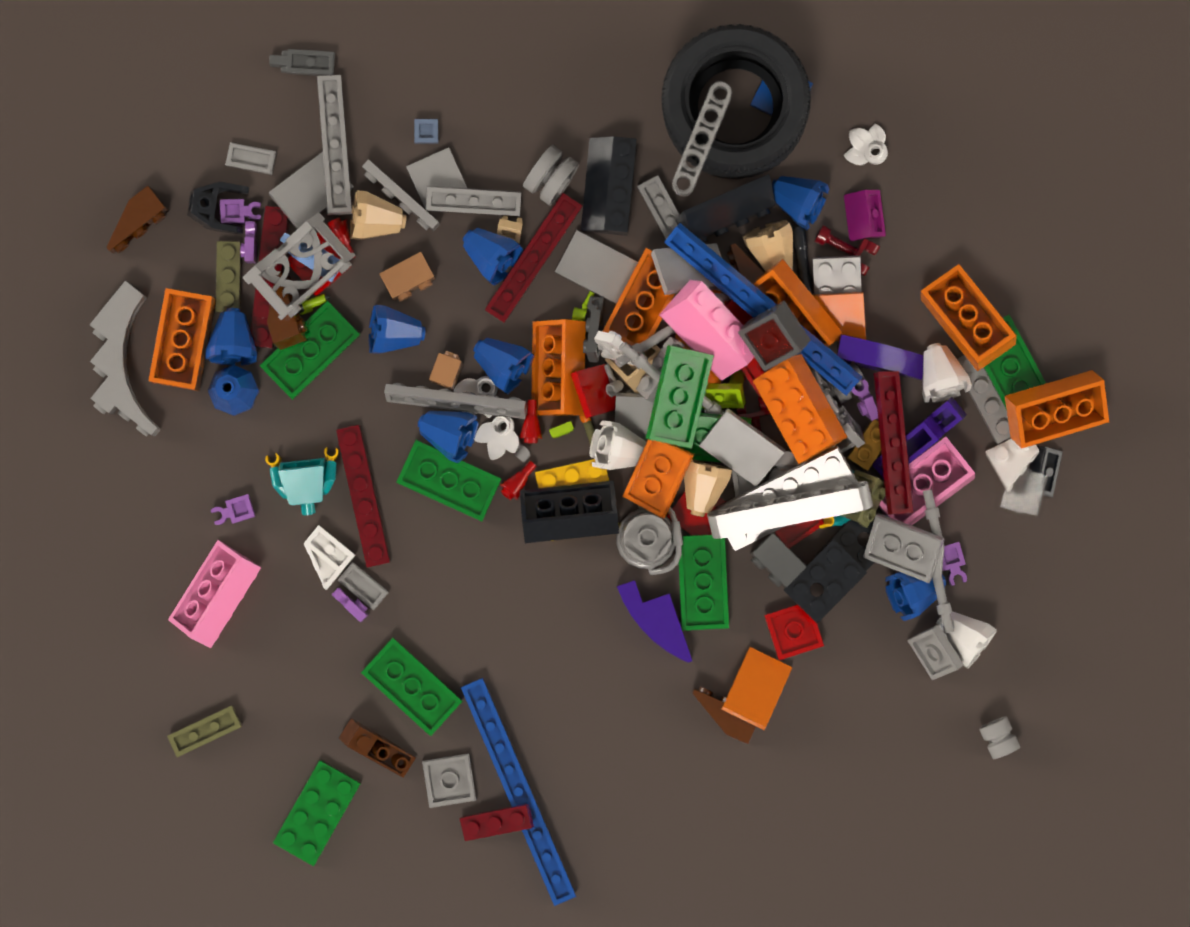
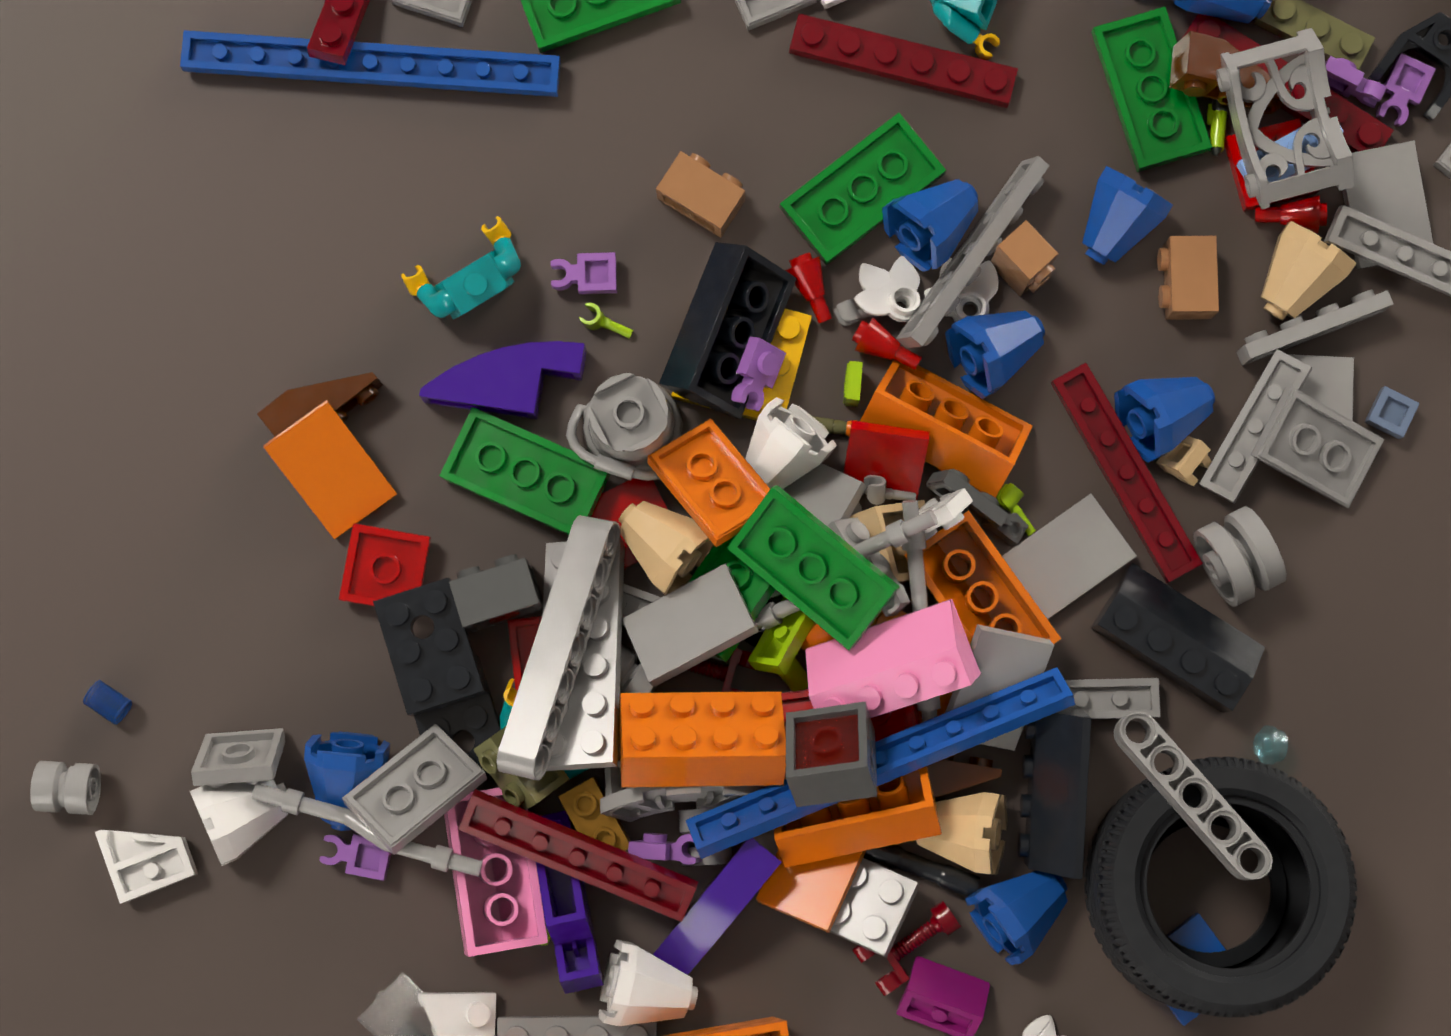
camera: 120 degrees right, 5 degrees down
(468, 162) = (1317, 447): none -> light grey tile
(497, 568) = (701, 193): none -> medium nougat brick
(573, 604) = (593, 273): none -> medium lavender plate
(581, 483) = (760, 369): none -> medium lavender plate
(596, 583) = (604, 322): none -> lime hand
(615, 666) = (472, 283): none -> teal torso
(642, 109) = (1270, 745): none -> clear light blue plate
(949, 739) = (102, 706): none -> blue piece
(1015, 674) = (144, 861): none -> white wing

